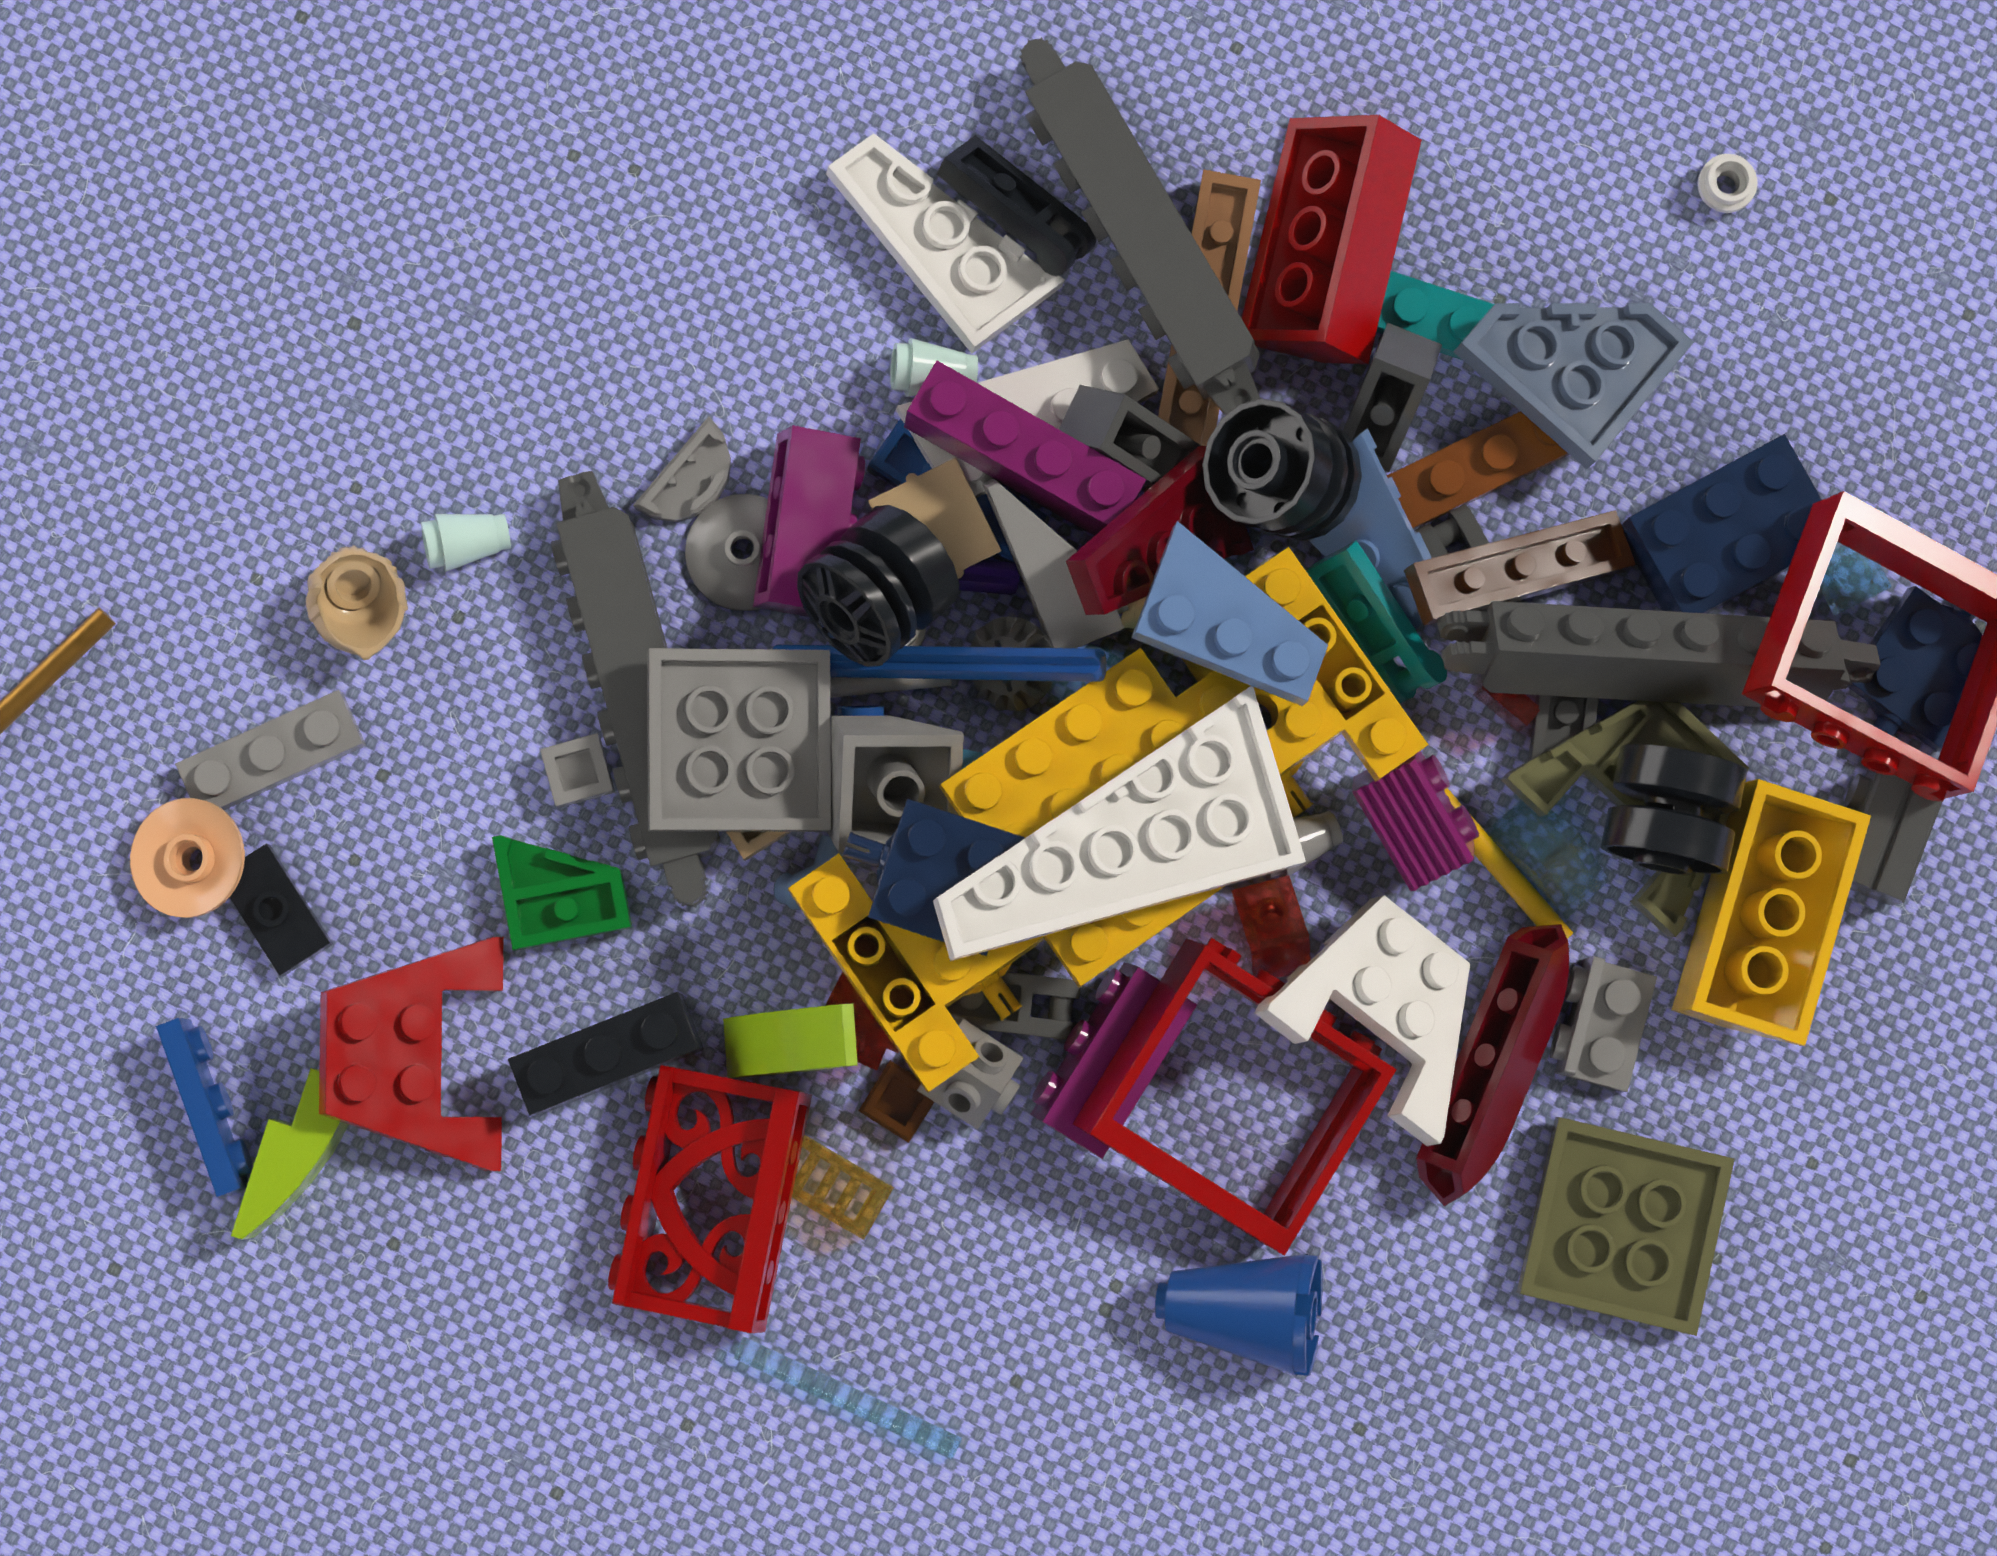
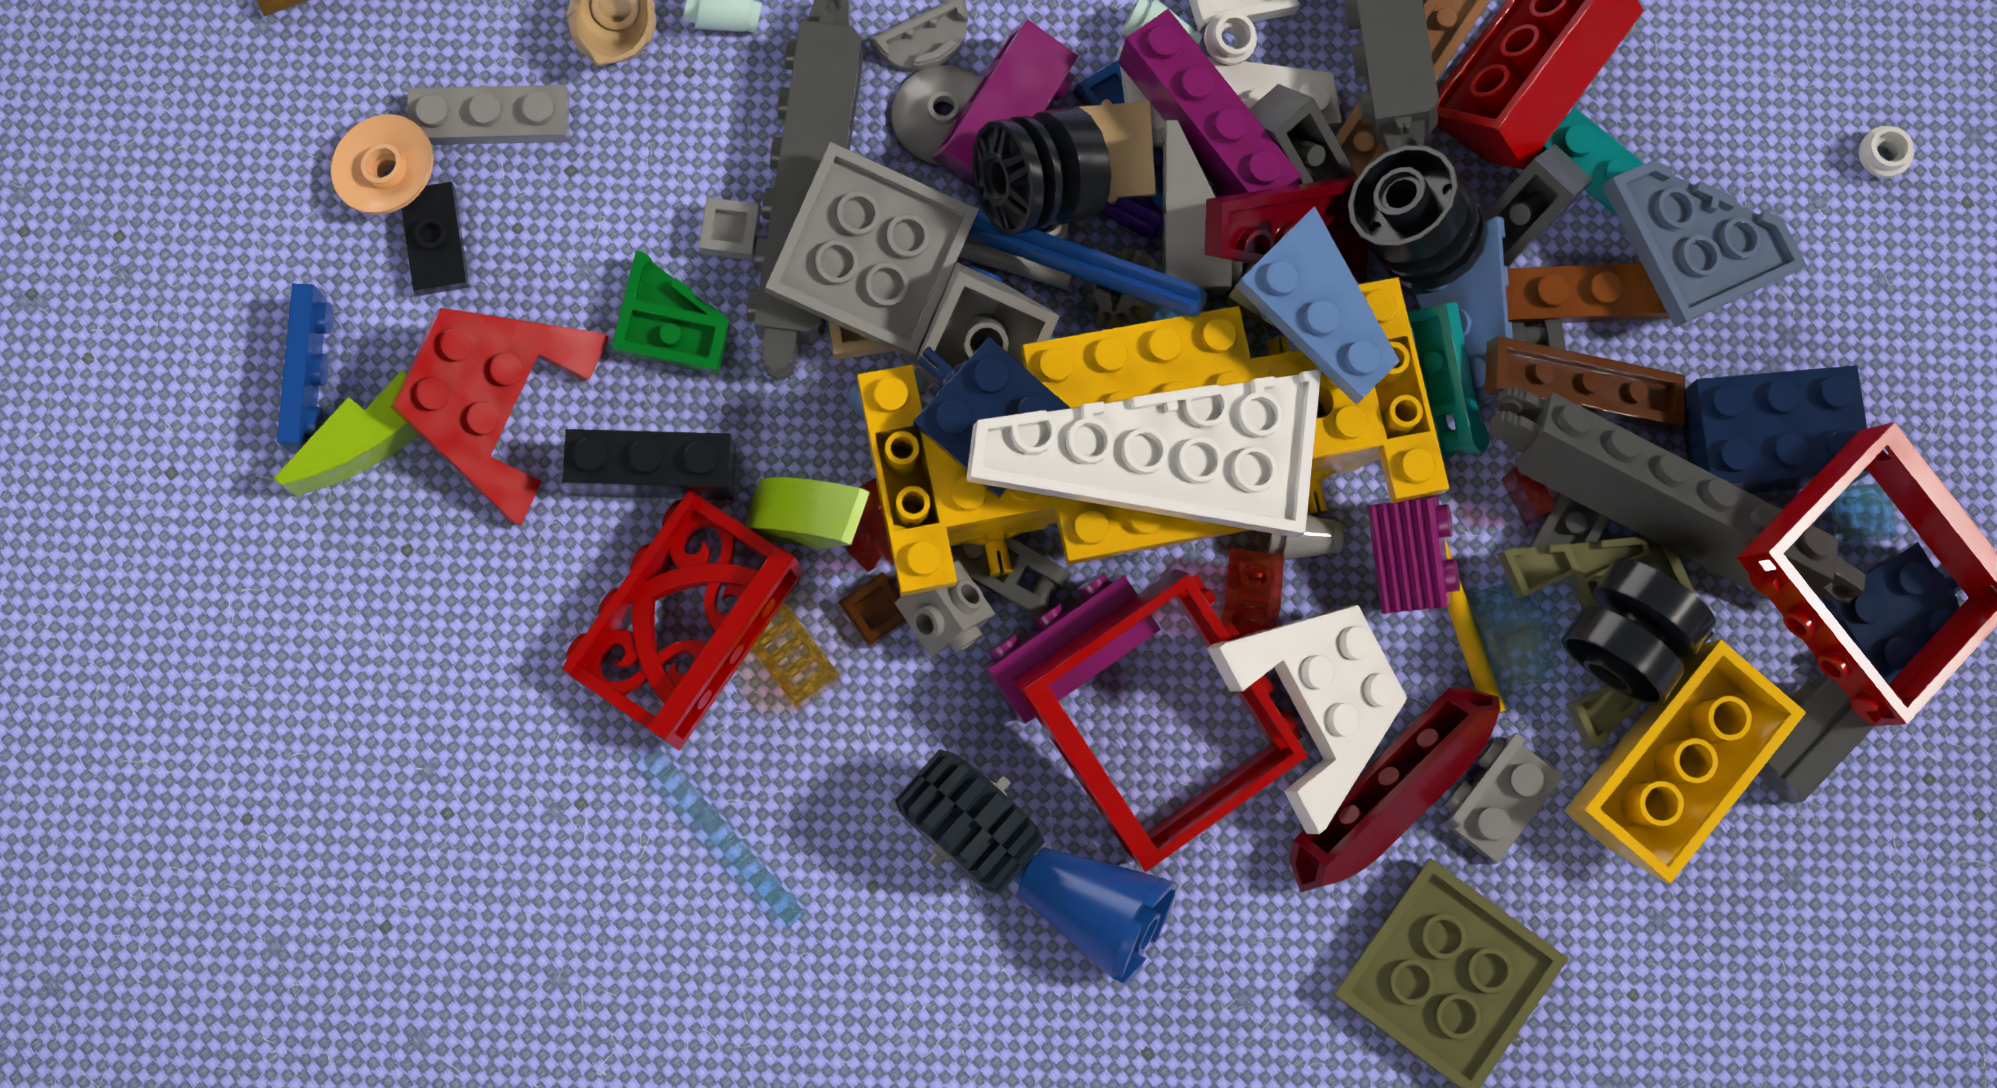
camera: 25 degrees right, 5 degrees down
(1020, 338) = (1240, 28): none -> white plate
(1089, 1282) = (969, 821): none -> black wheel

